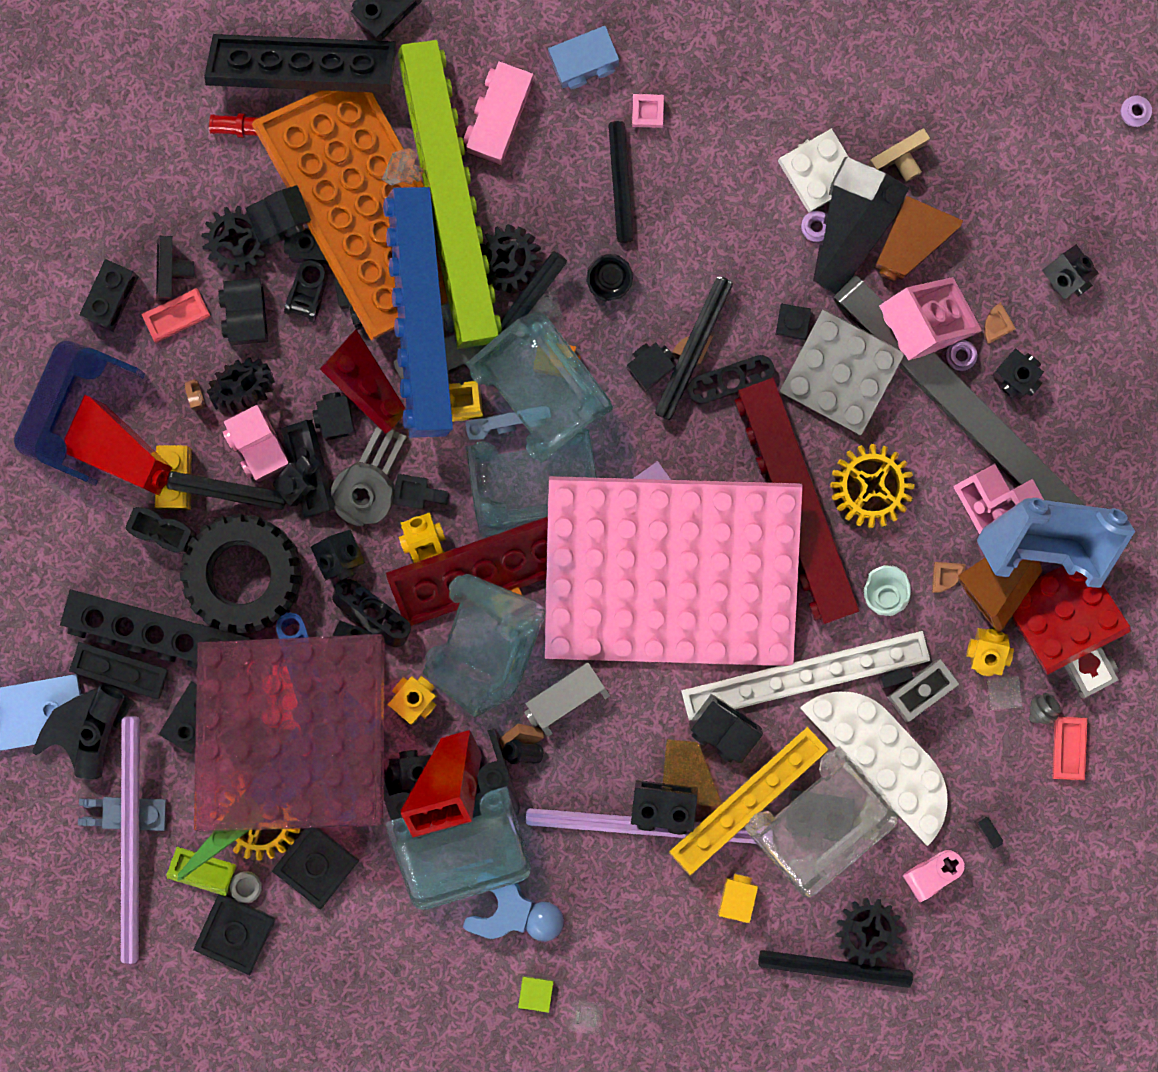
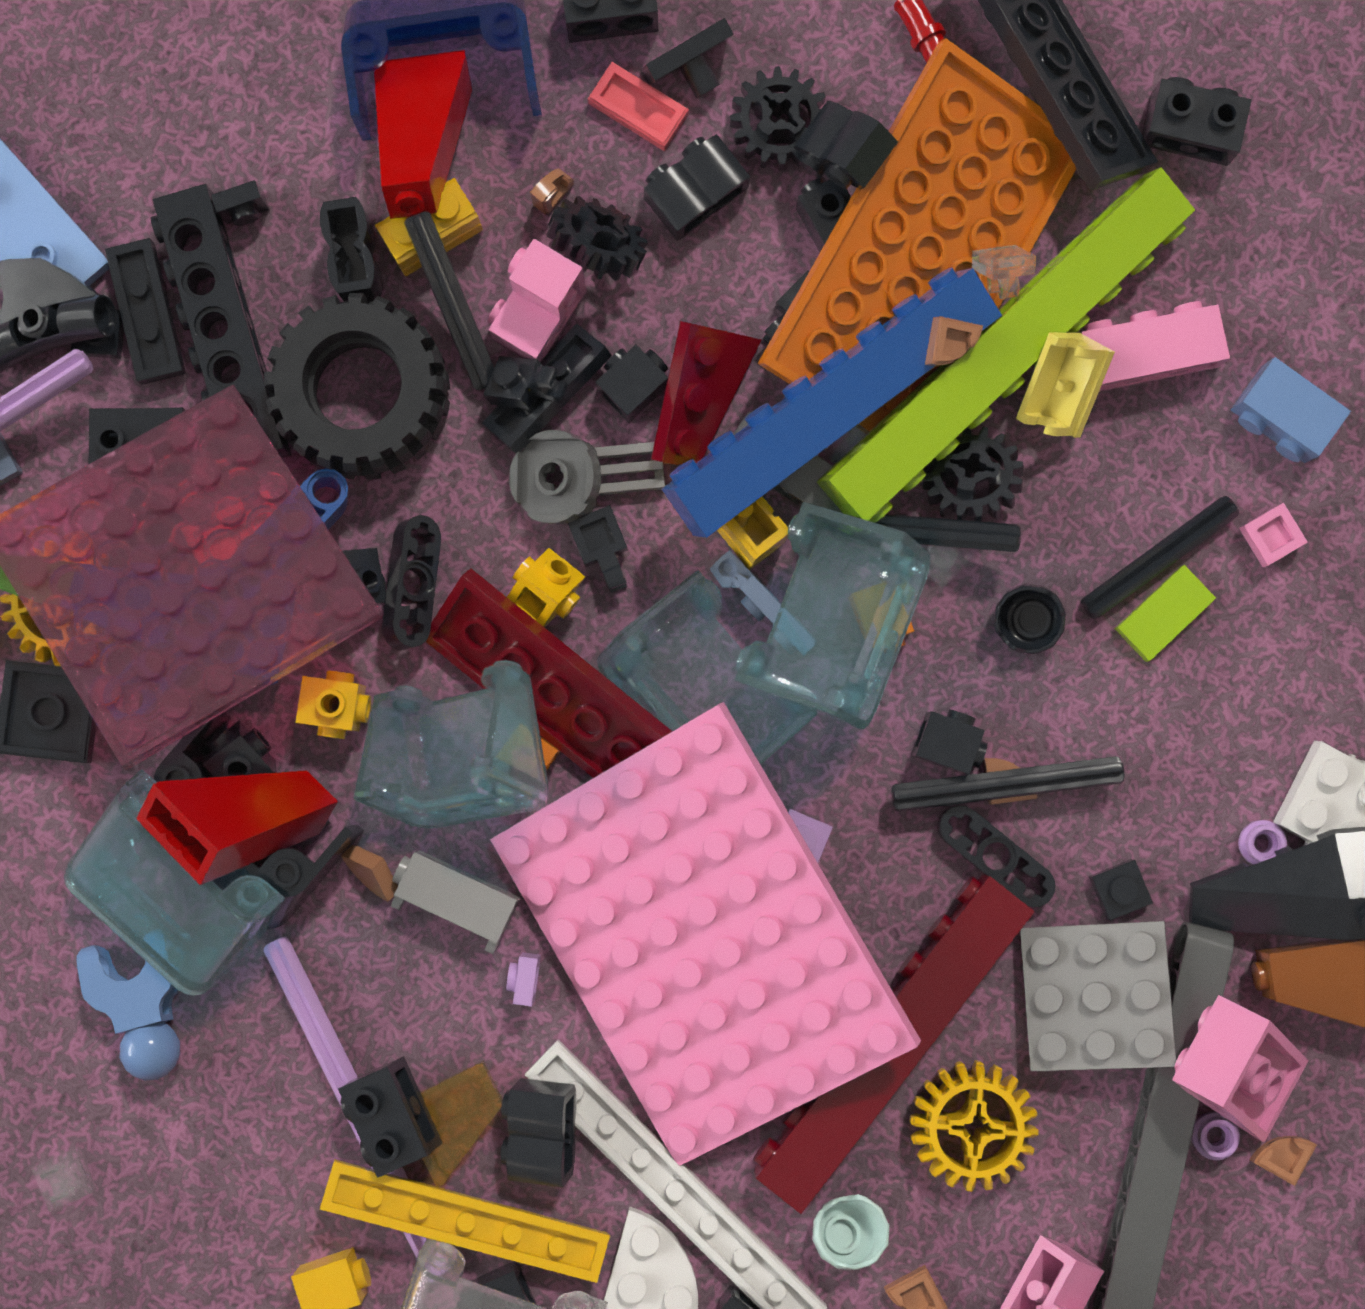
camera: 50 degrees right, 0 degrees up
(91, 577) = (241, 203): none -> black plate
(306, 292) = (767, 248): black piece -> none
(338, 555) = (457, 495): black brick -> none
(426, 225) = (950, 340): none -> nougat tile
(490, 175) = (1065, 384): none -> light yellow hinge
(518, 752) = (346, 880): black pin -> none
(535, 994) = (54, 1095): lime tile -> none
(634, 687) = (523, 978): none -> lavender plate
(654, 199) = (1165, 613): none -> lime tile
(1008, 377) = (1240, 1230): black brick -> none

